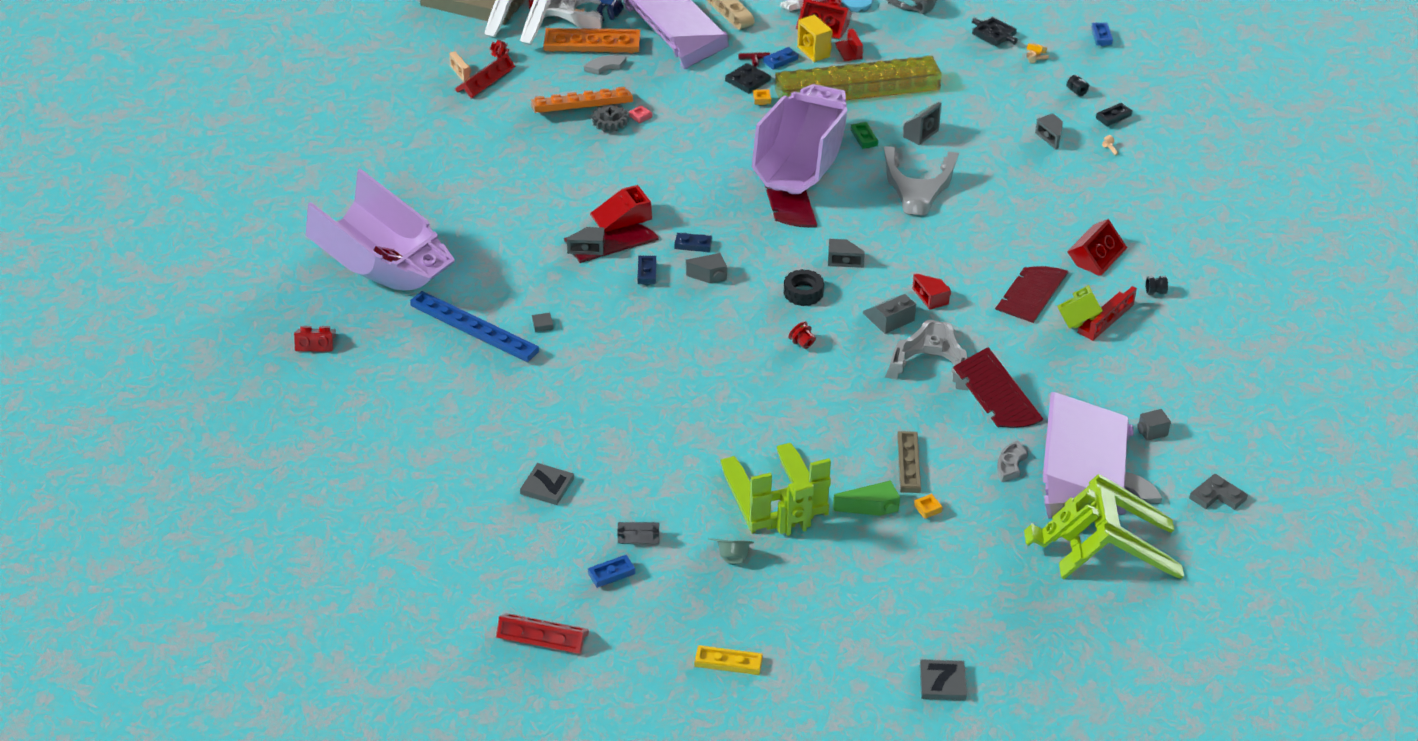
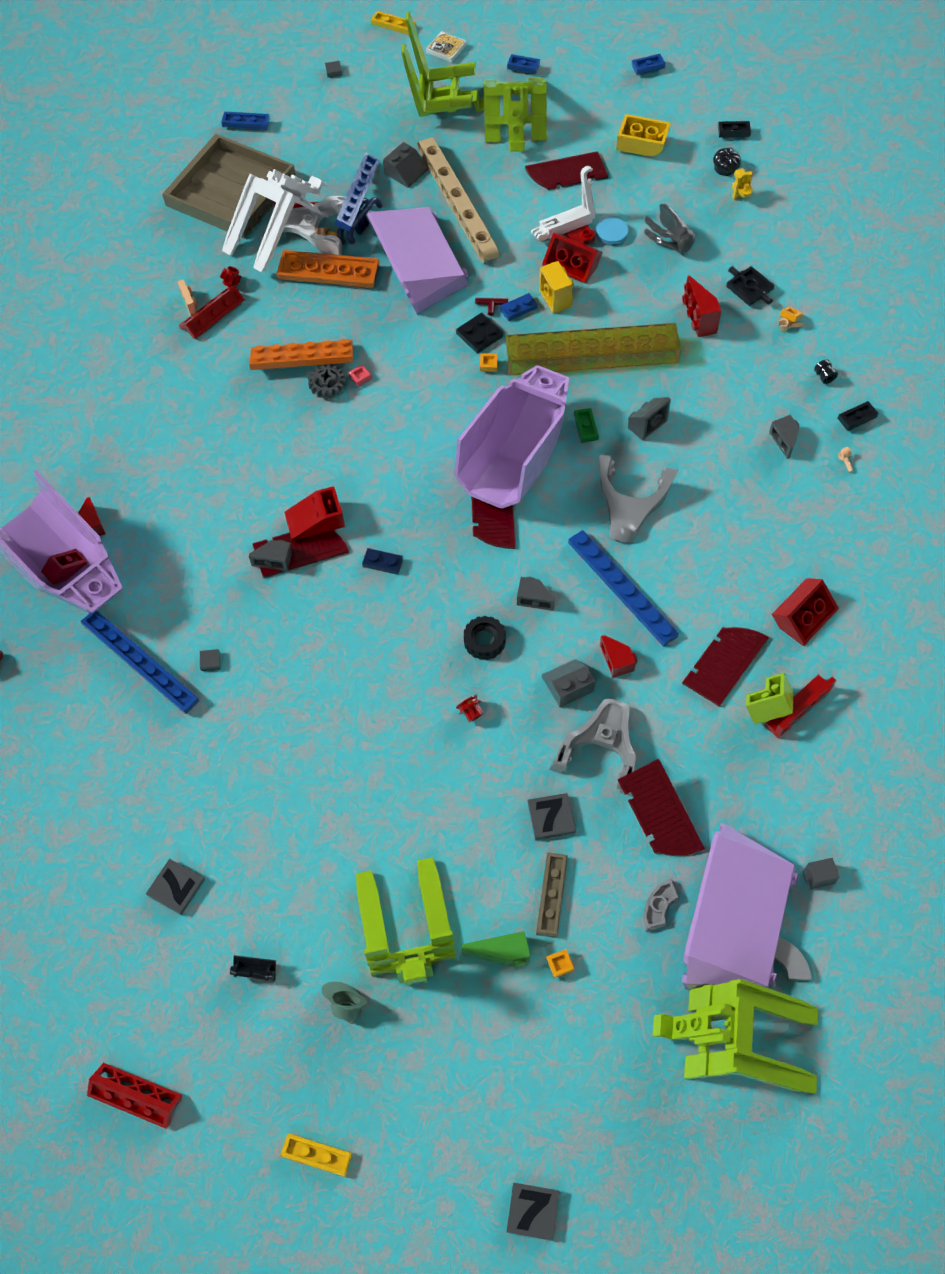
camera: 10 degrees right, 20 degrees up
(605, 63) = (336, 301): light grey tile -> none
(611, 571) = (217, 1019): blue plate -> none
(646, 270) = (327, 598): dark blue plate -> none
(707, 268) = (389, 602): dark grey slope -> none
(851, 48) = (593, 297): red panel -> none
(895, 407) = (551, 816): none -> dark grey tile
(925, 246) = (623, 588): none -> blue plate
(953, 45) = (701, 308): none -> red slope
(1102, 34) = (865, 297): blue plate -> none
(1156, 285) = (860, 669): black wheel -> none
(1218, 489) = (875, 970): dark grey plate -> none

